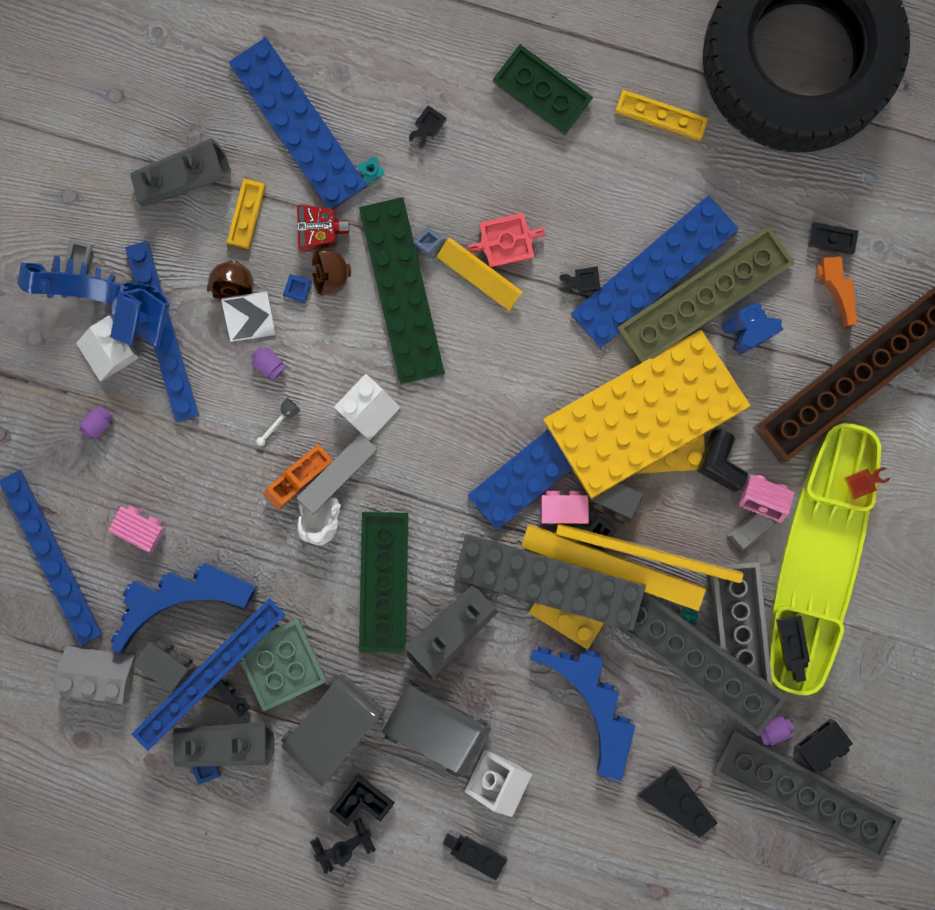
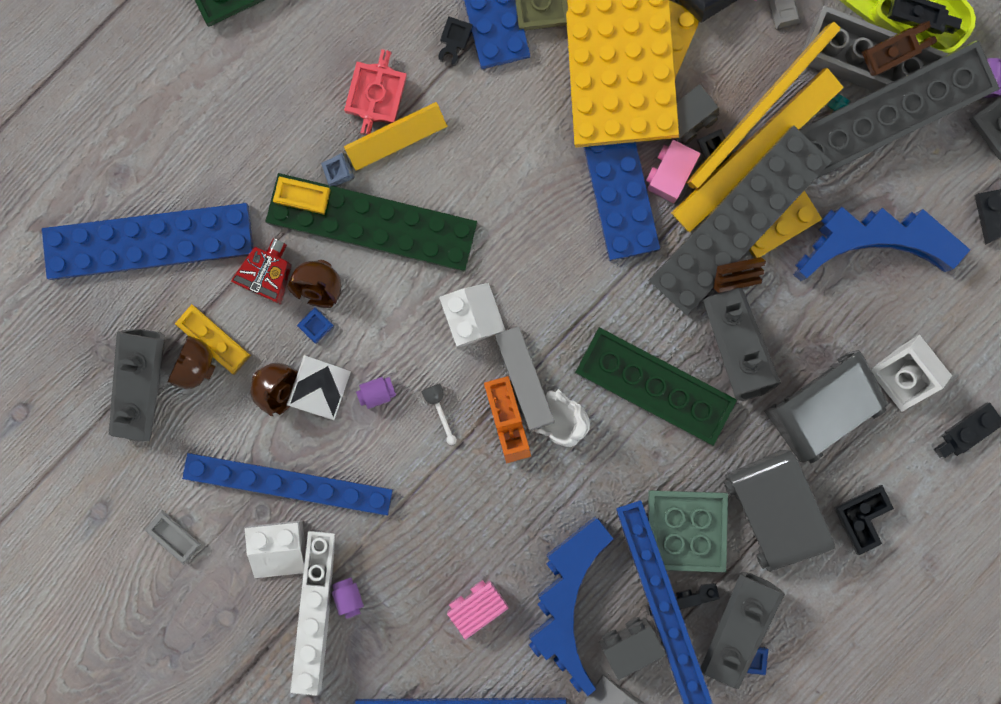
camera: 70 degrees left, 0 degrees up
(69, 403) = (313, 614): none -> white slope
(134, 305) = (250, 497): blue piece -> none
(216, 209) = (192, 364): none -> reddish brown cylinder
(342, 850) = (905, 561): black axle -> none
(371, 163) = (238, 197): teal plate -> none
(393, 224) = (301, 195): none -> yellow tile
(429, 124) = (217, 111): black plate -> none
(504, 604) = (738, 278): none -> reddish brown tile
(751, 639) = (897, 49): none -> reddish brown hinge

